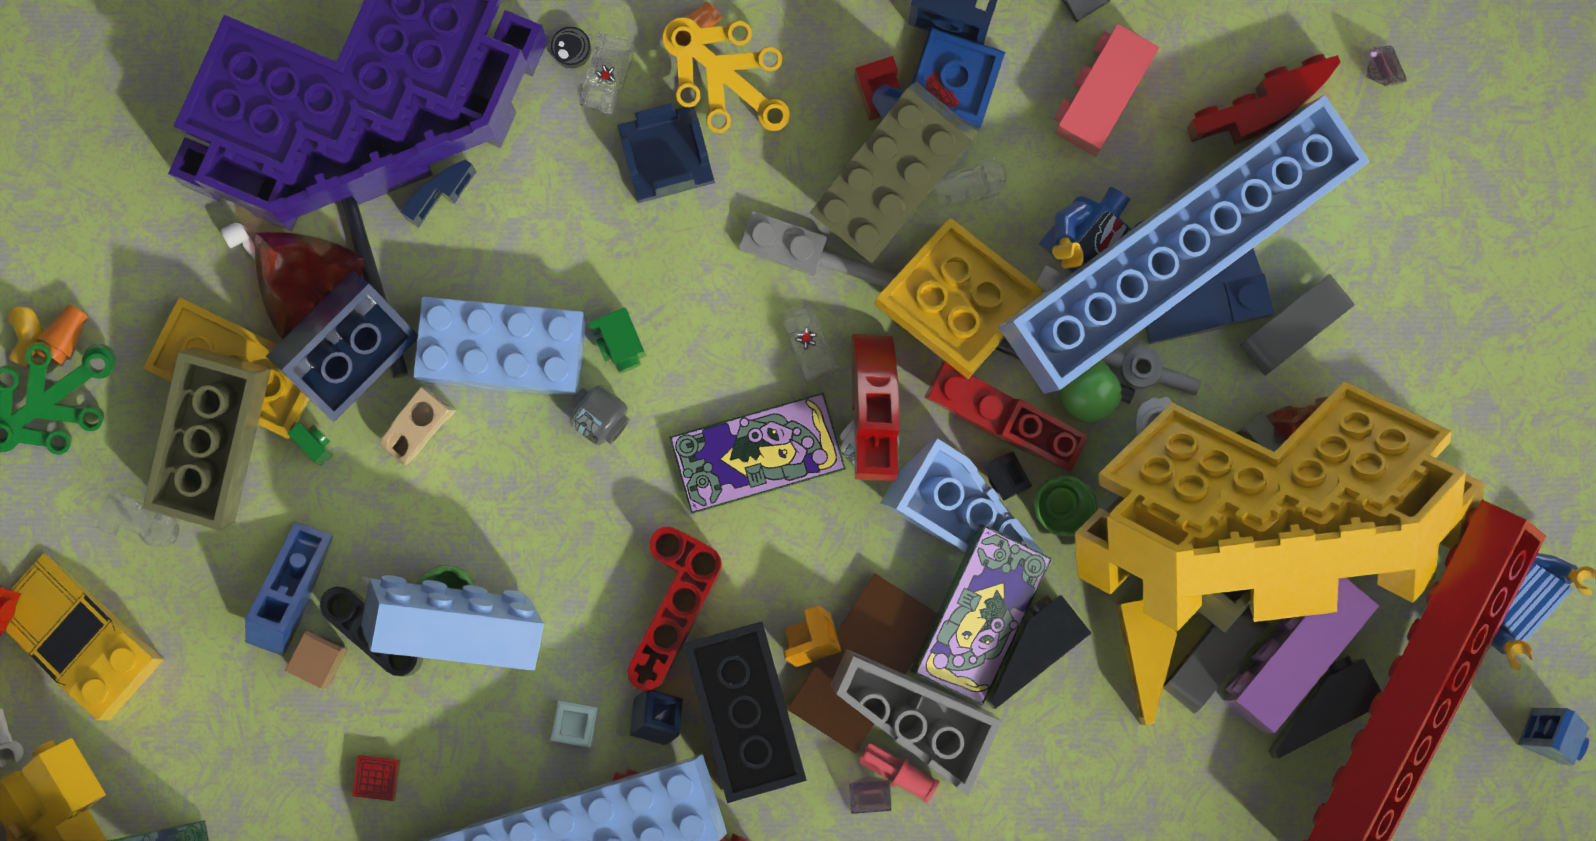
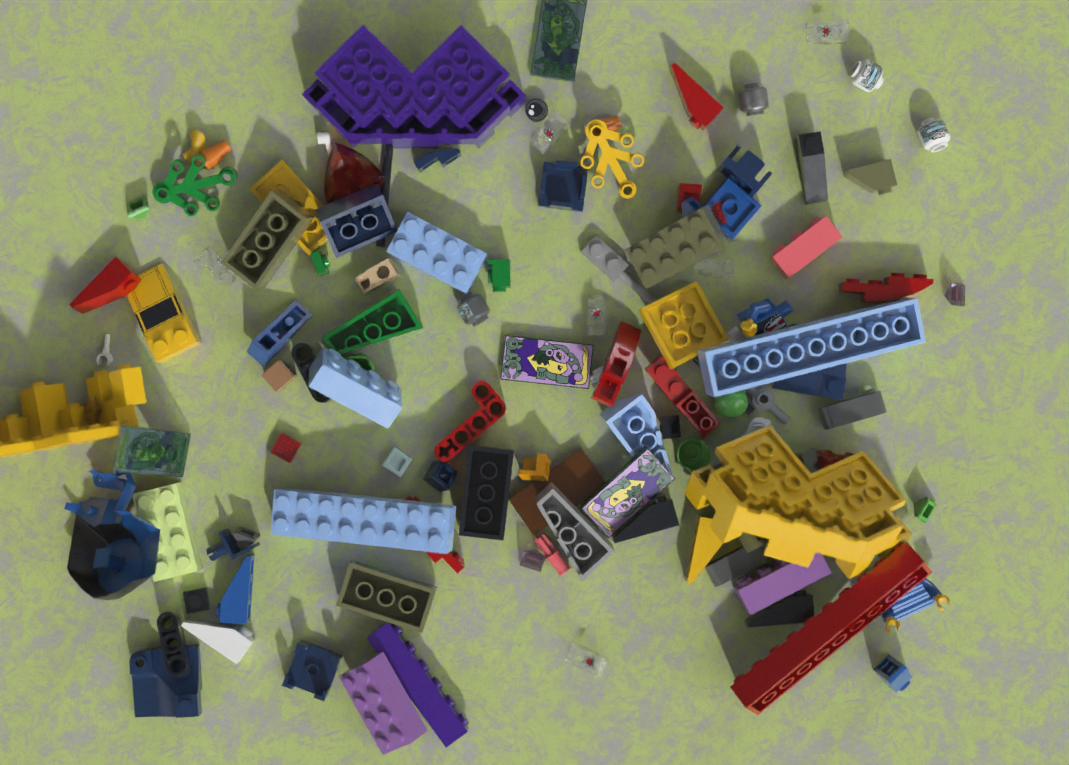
camera: 20 degrees right, 5 degrees up
(448, 501) = (377, 323): none -> green wedge
(1486, 439) = (924, 509): none -> bright green slope

